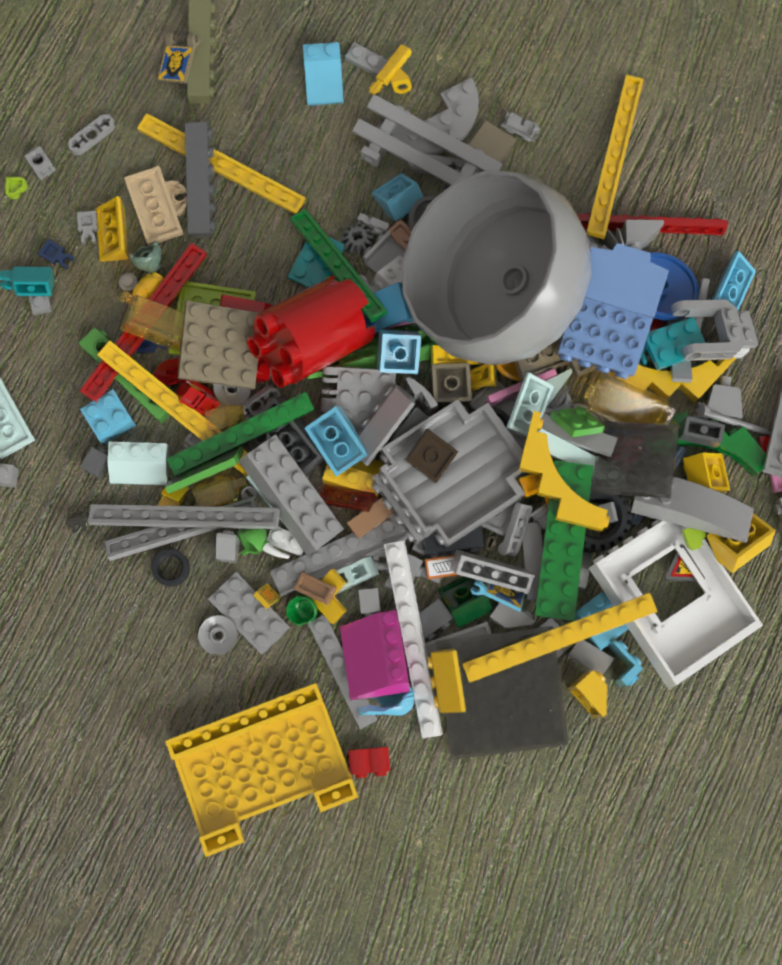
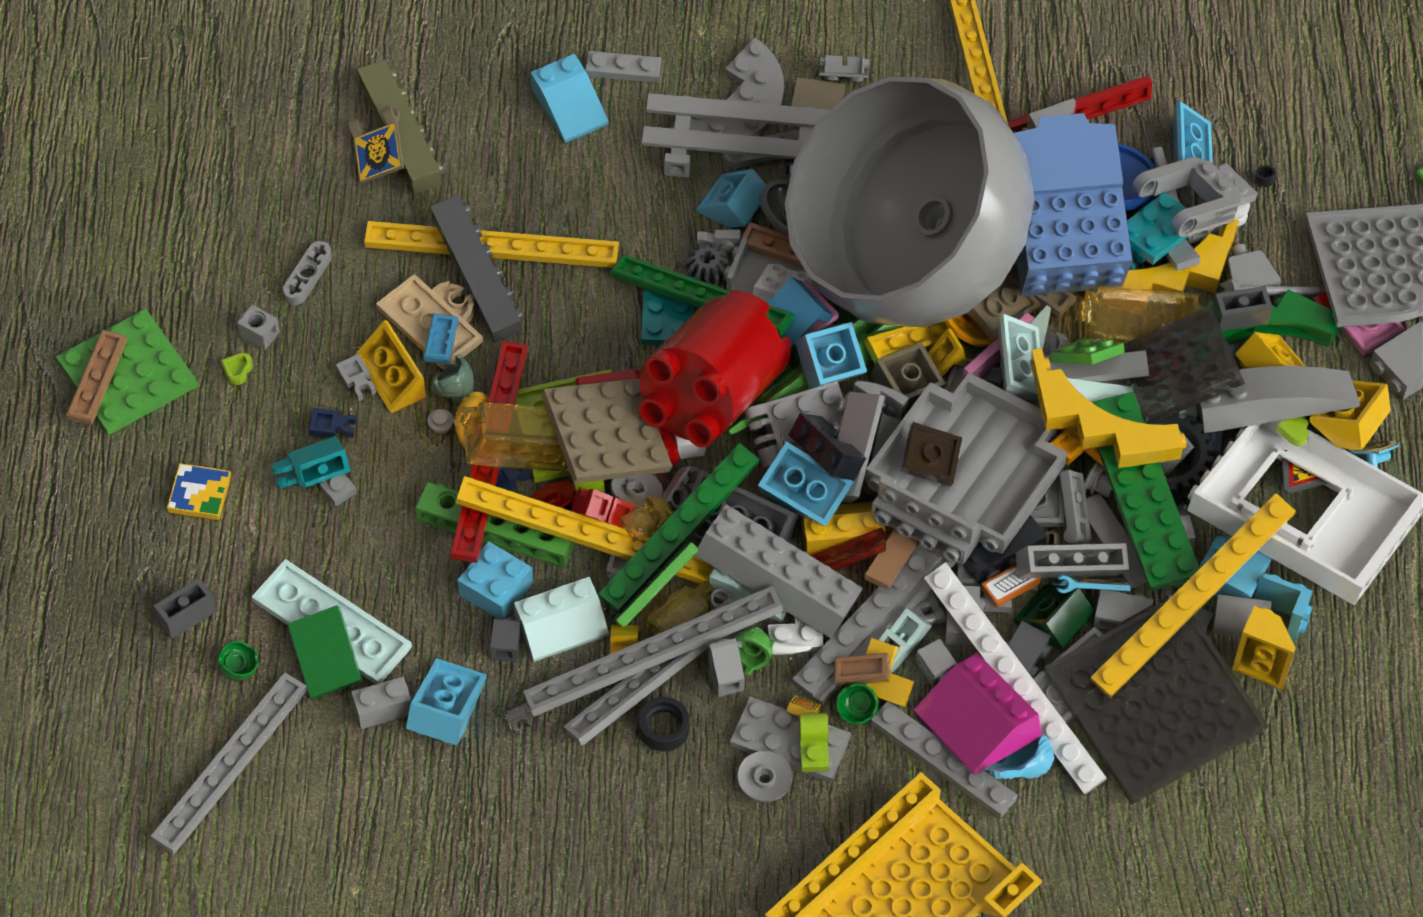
camera: 20 degrees left, 20 degrees down
(37, 490) = (445, 701): none -> medium azure slope
(152, 223) = (441, 339): none -> dark azure plate
(258, 627) = (814, 742): none -> lime plate
(362, 435) = (816, 438): none -> black arch
(369, 761) = (1033, 843): red brick -> none
(393, 73) = (656, 64): yellow piece -> none
(446, 681) = (1083, 698): yellow slope -> none
(747, 573) = (1377, 451): none -> shield
(771, 327) = (1265, 175): none -> black hinge

